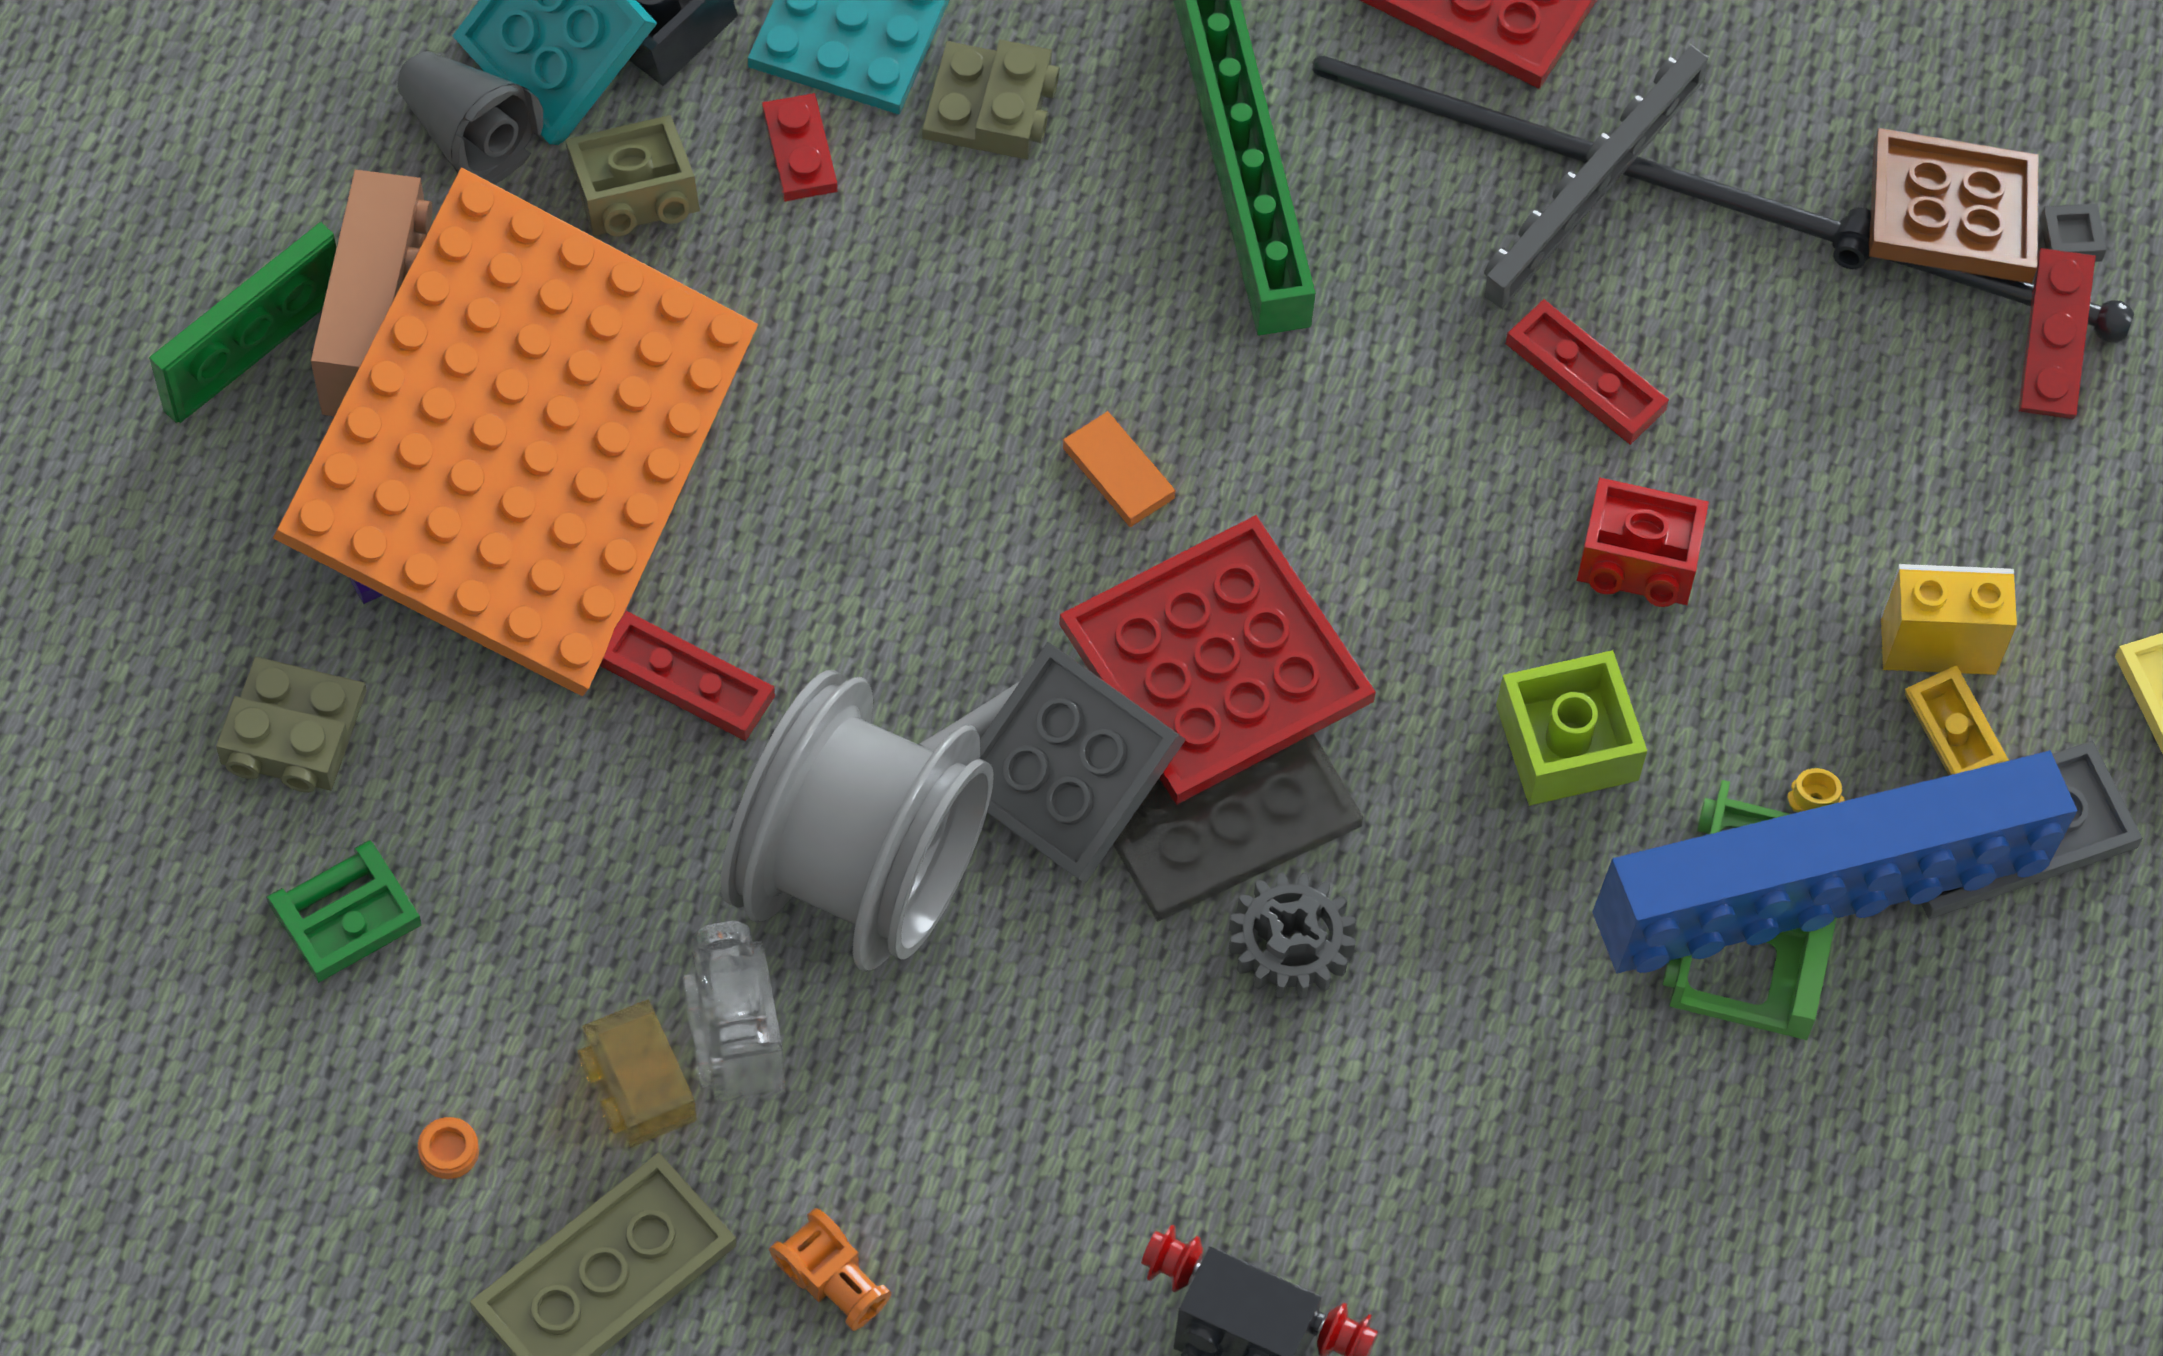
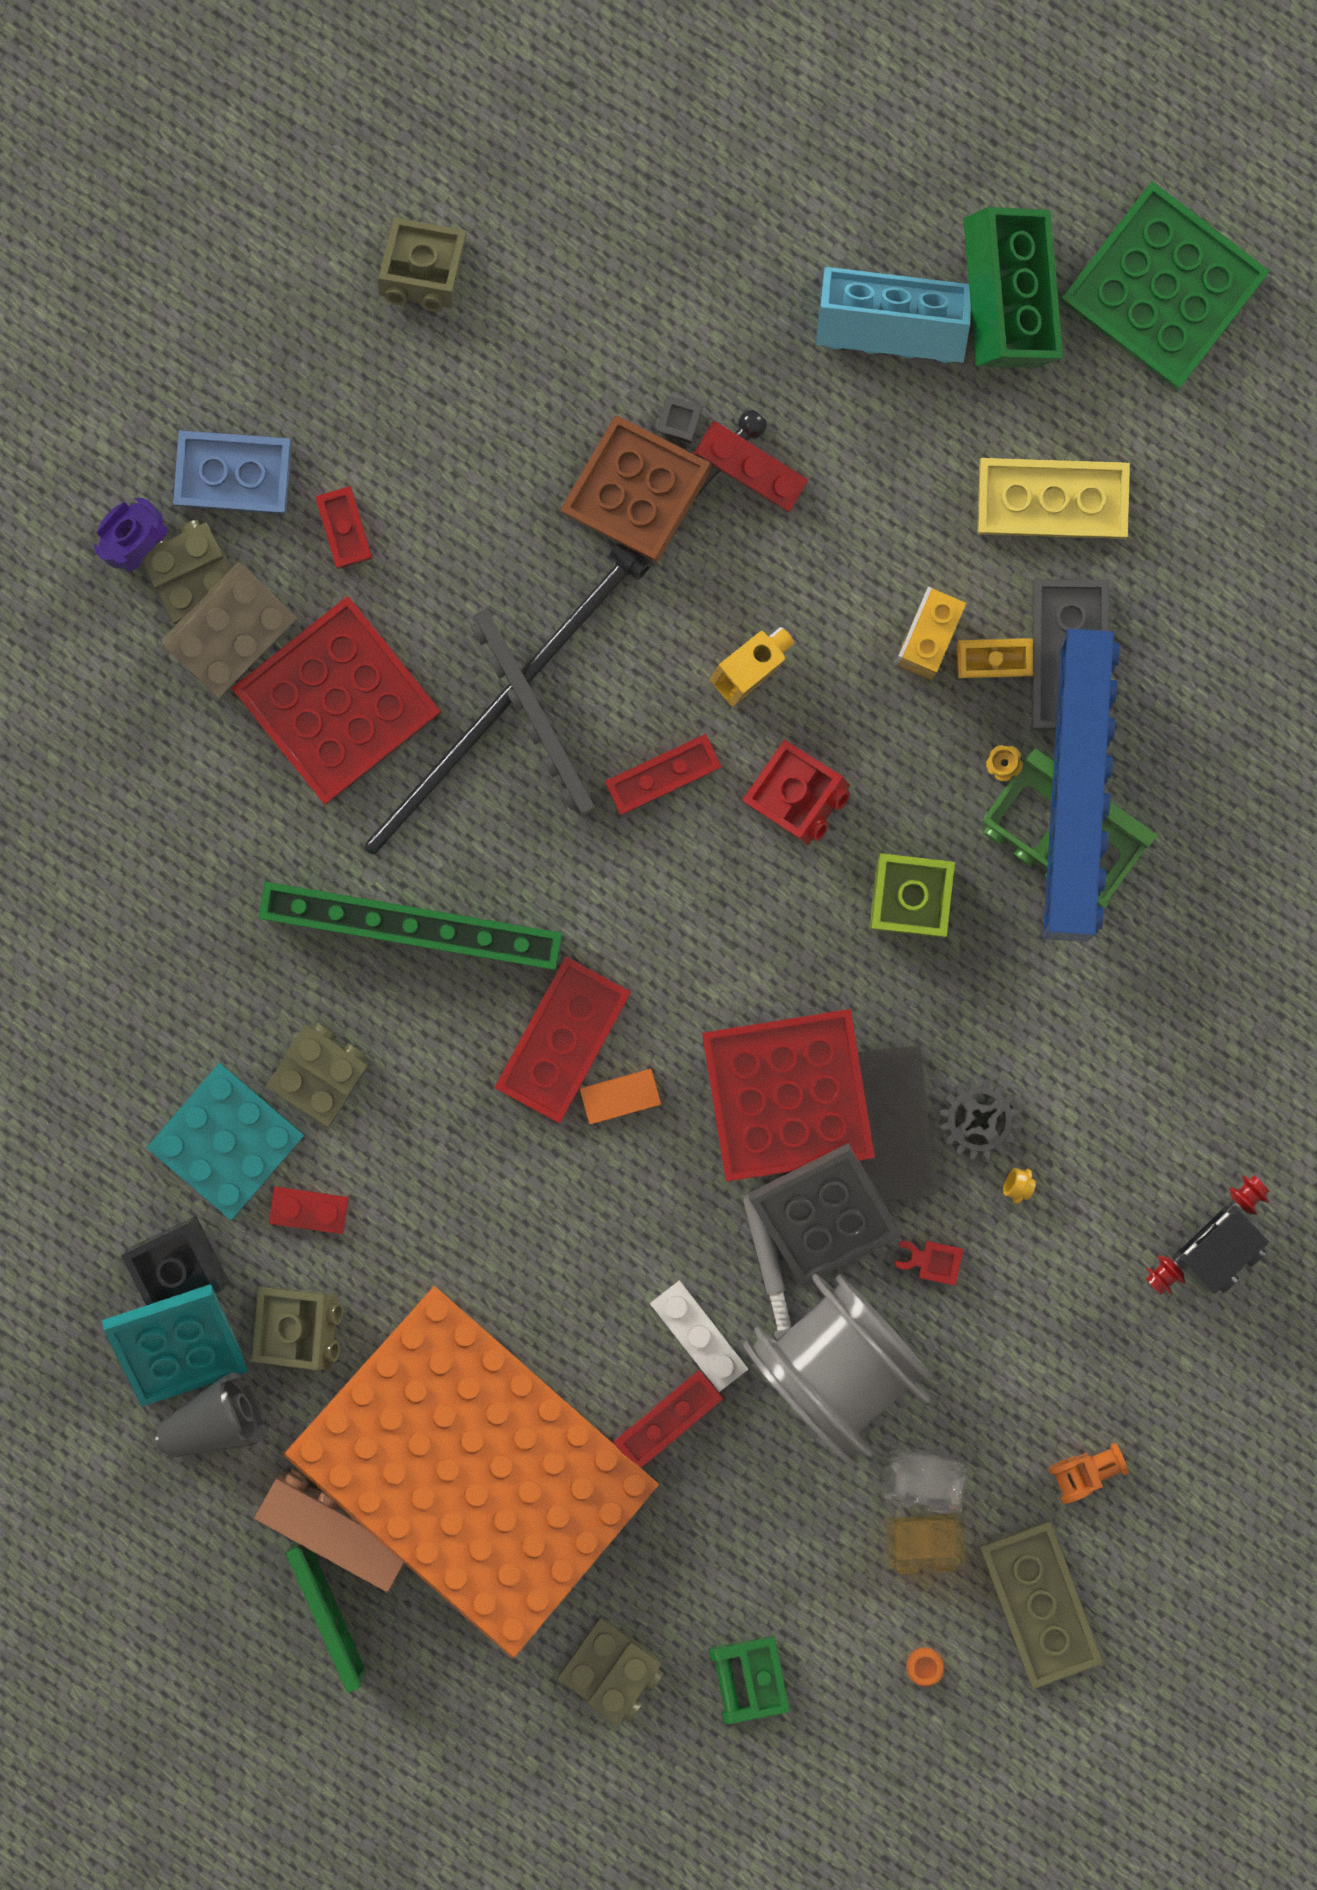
camera: 60 degrees left, 25 degrees up
(842, 645) = (699, 1335): none -> white plate
(1058, 949) = (936, 1261): none -> red plate
(1166, 368) = (562, 1039): none -> red plate
(1219, 1026) = (1019, 1185): none -> yellow plate
(1790, 417) = (743, 673): none -> yellow torso

